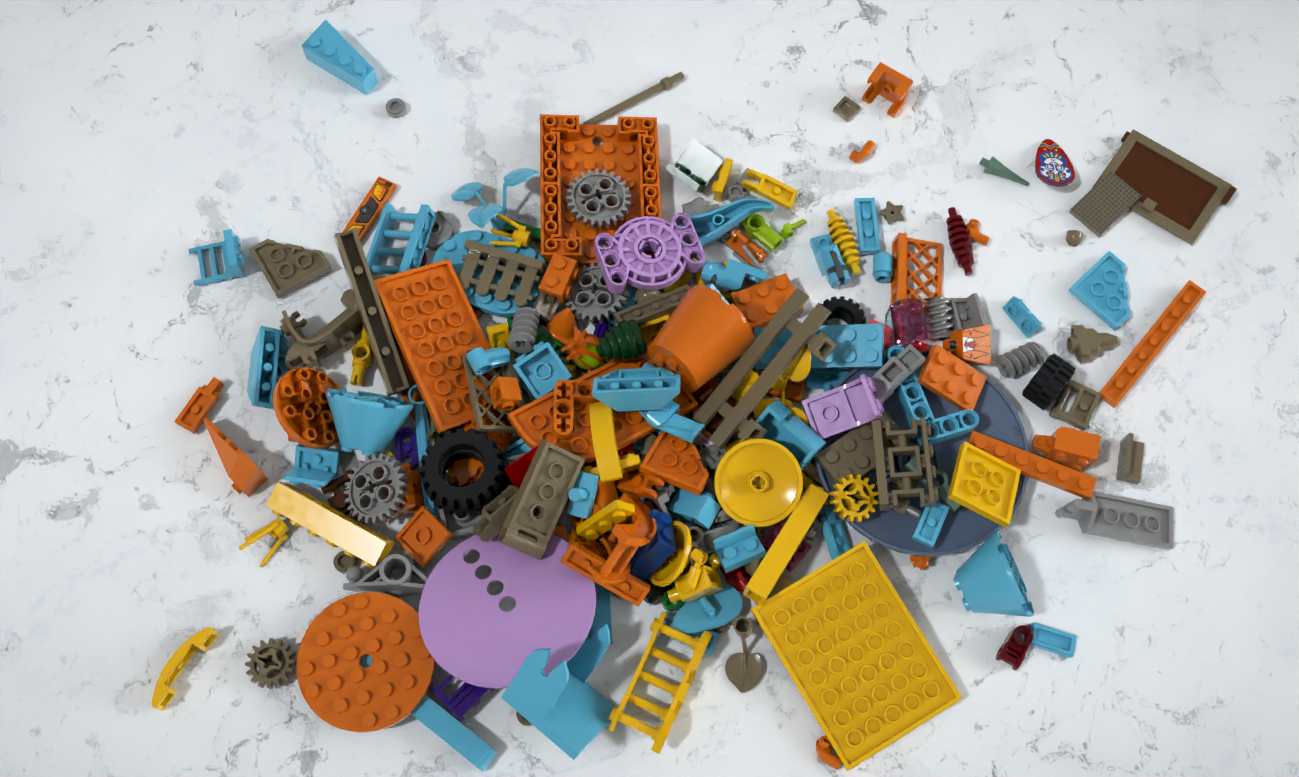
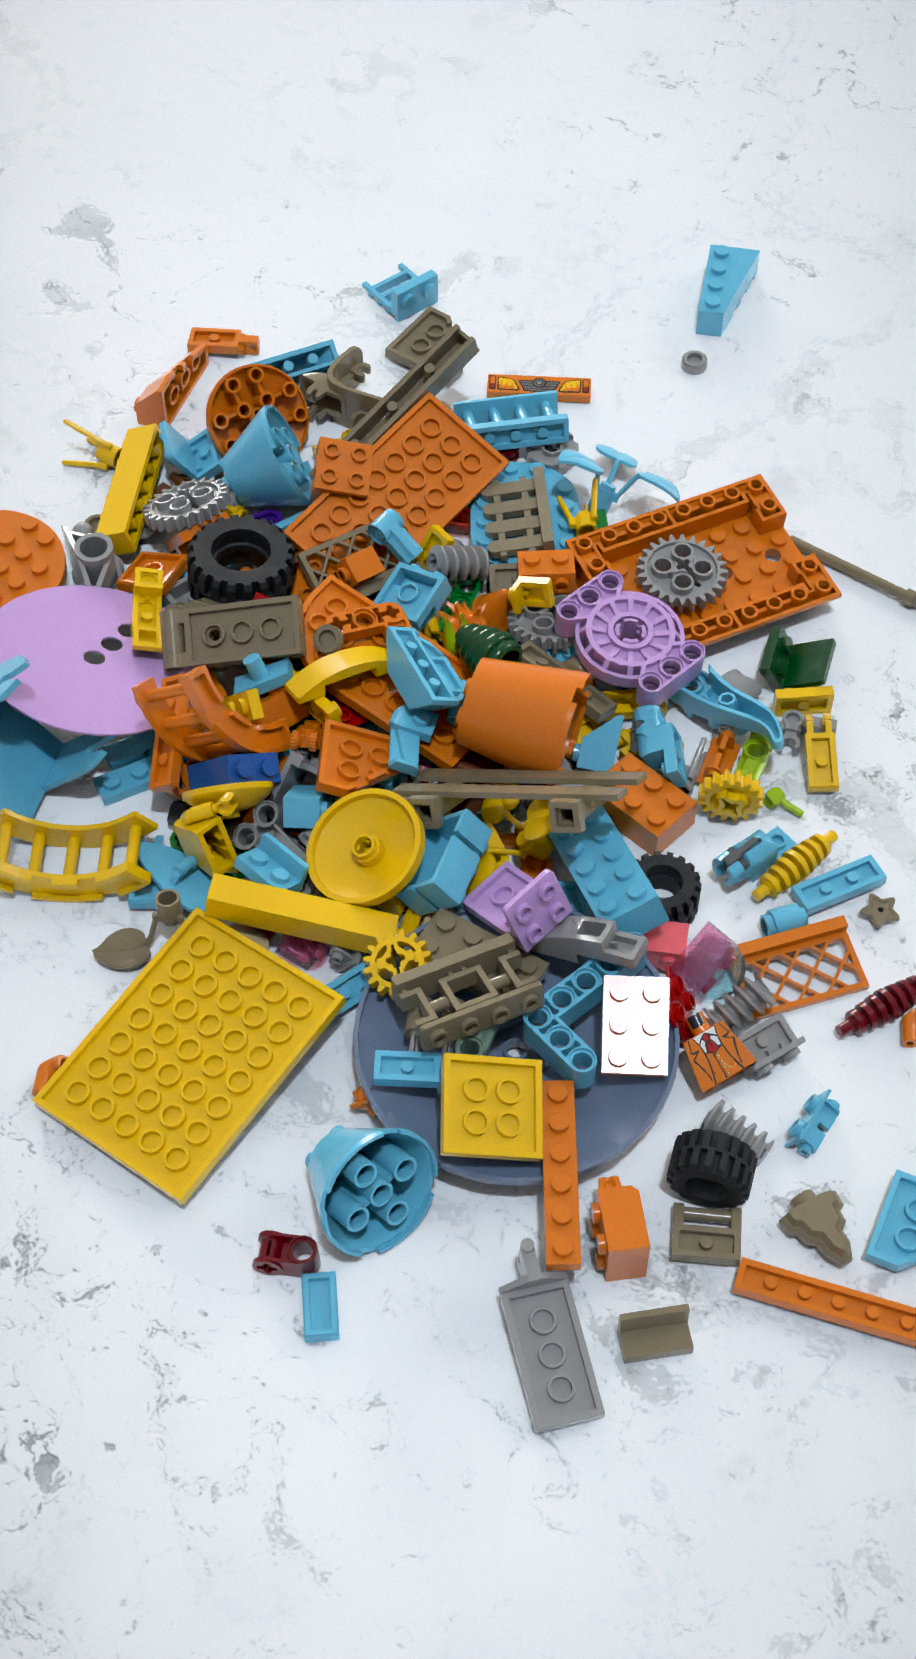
camera: 70 degrees right, 15 degrees down
(408, 370) = (341, 468): none -> orange bracket
(476, 554) = (146, 609): none -> yellow slope
(574, 437) = (328, 639): none -> dark tan tile
(578, 291) = (531, 593): none -> yellow bracket
(787, 252) = (730, 795): none -> yellow gear

